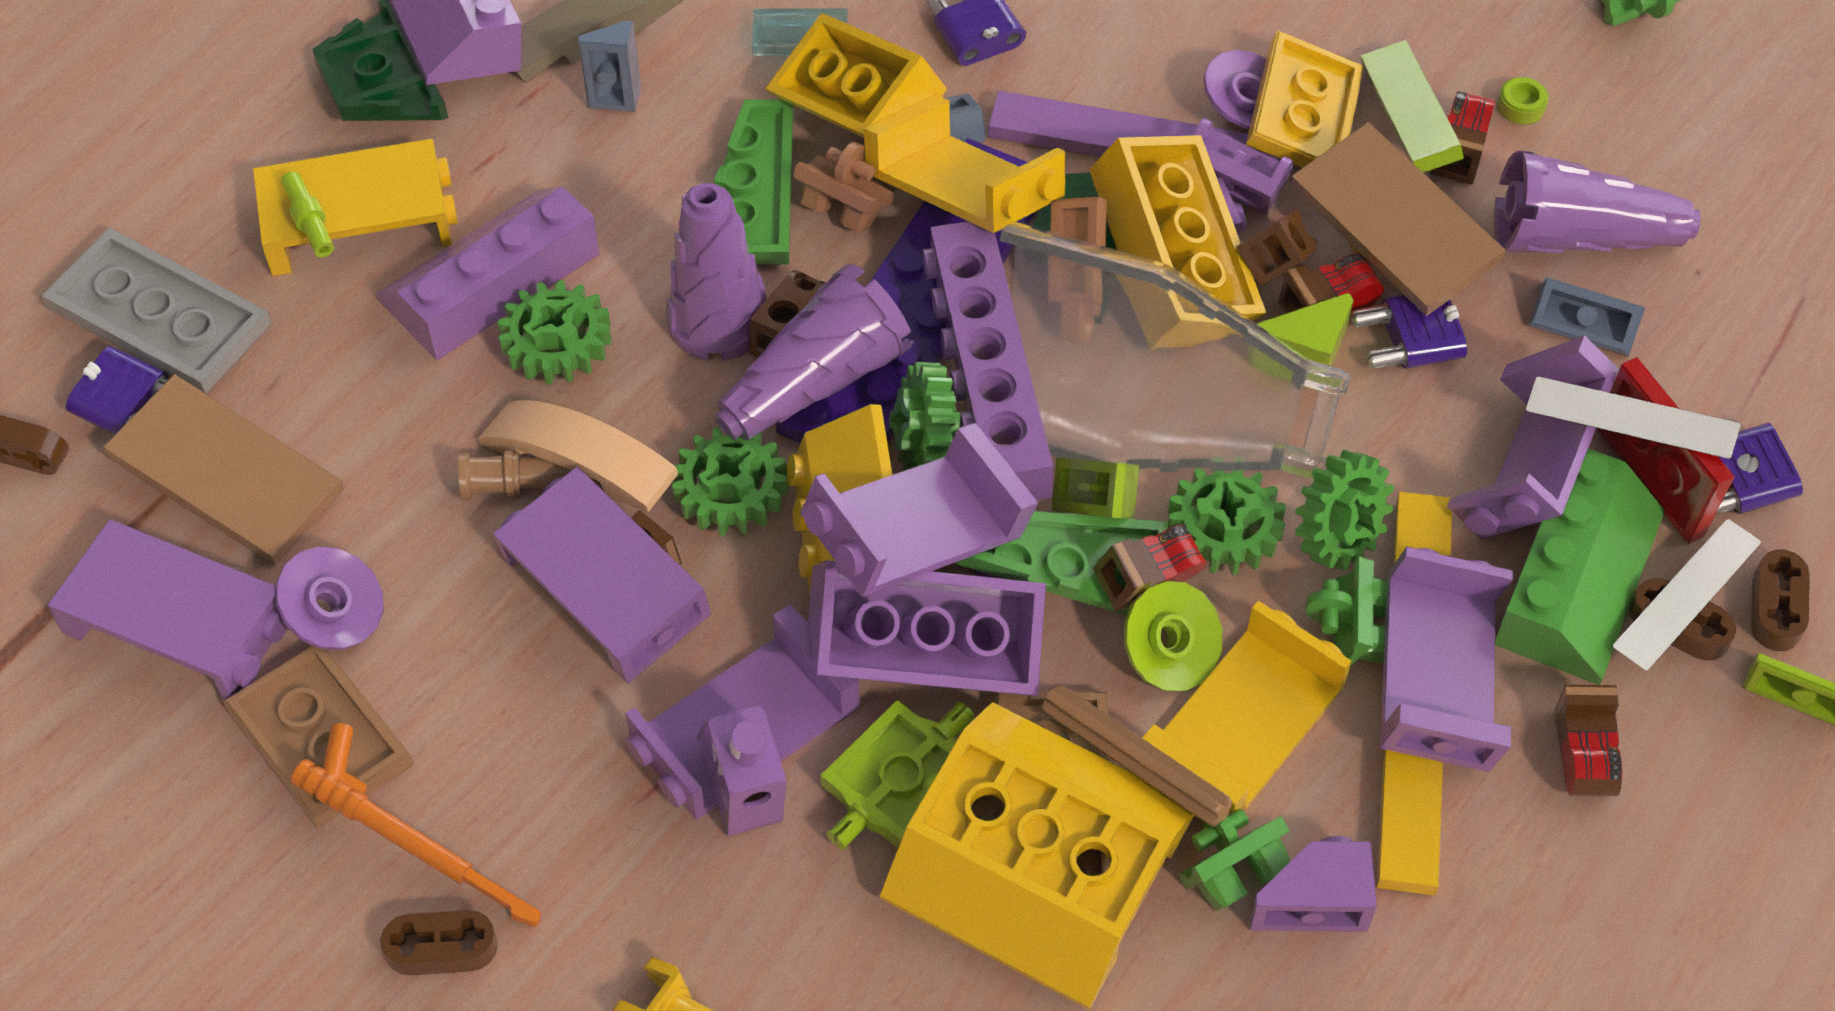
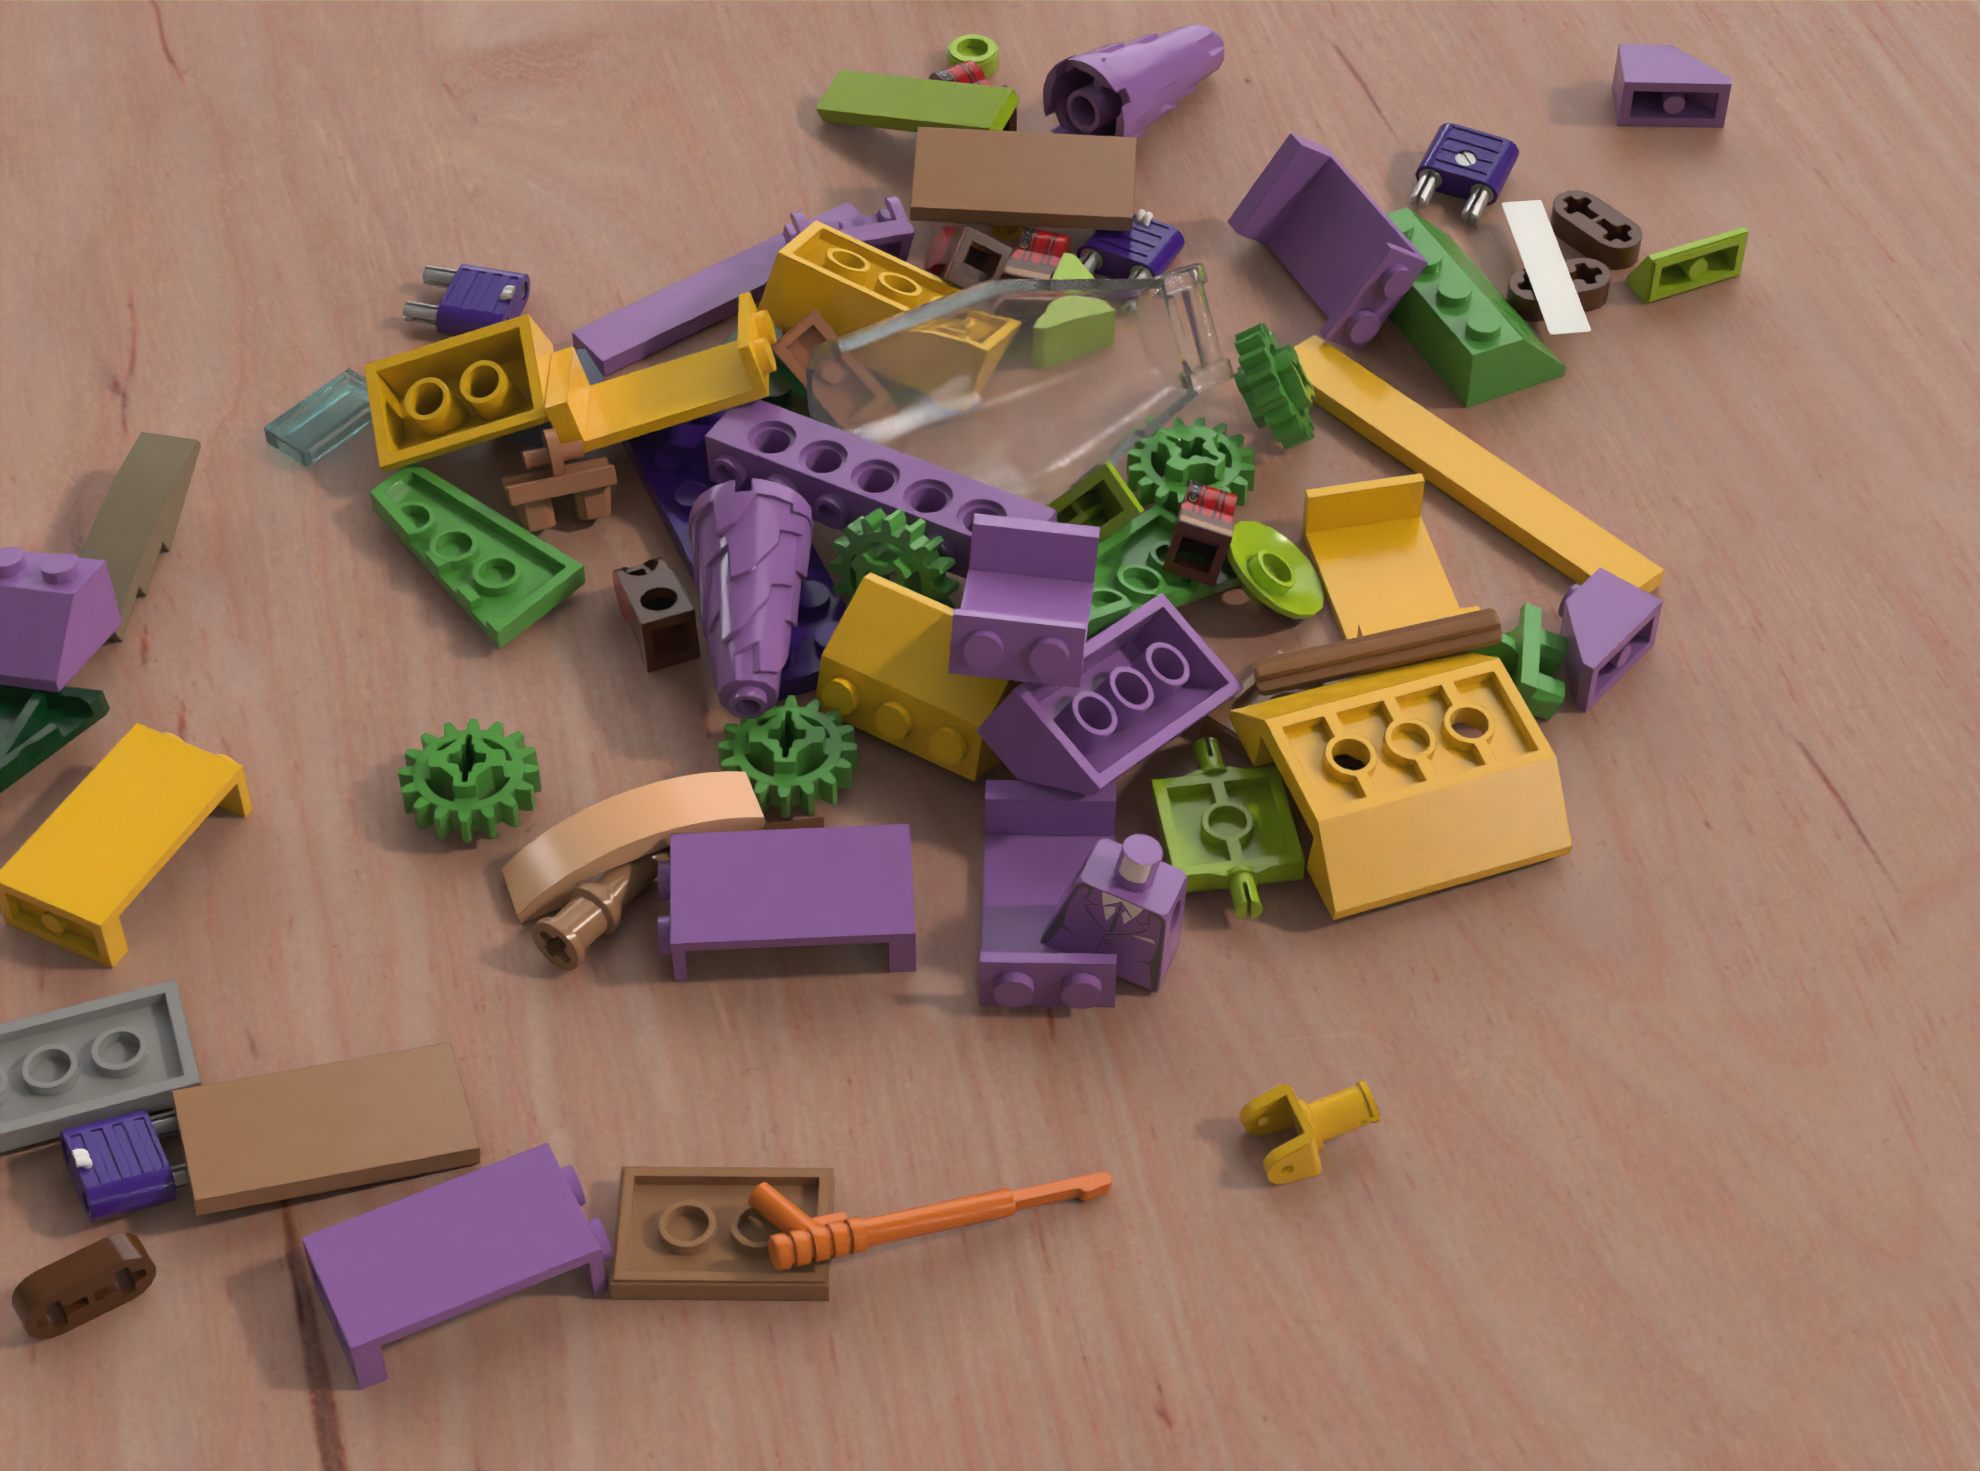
camera: 50 degrees left, 10 degrees down
(307, 214) = (119, 860): lime bar -> none
(341, 582) = (590, 1123): medium lavender dish -> none
(439, 942) = (1074, 1273): reddish brown beam -> none
(475, 277) = (327, 785): medium lavender slope -> none
(611, 67) = (225, 547): sand blue slope -> none
(712, 277) = (578, 625): medium lavender cone -> none
(1233, 84) = (774, 186): medium lavender dish -> none
(1303, 100) = (826, 165): yellow tile -> none
(1347, 612) = (1360, 451): bright green hips -> none
(1442, 660) = (1465, 435): medium lavender panel -> none
(1581, 312) = (1221, 157): sand blue slope -> none
(1589, 739) = (1618, 403): leg -> none
(1633, 417) = (1387, 163): white sticker -> none
(1681, 480) = (1435, 177): red tile -> none

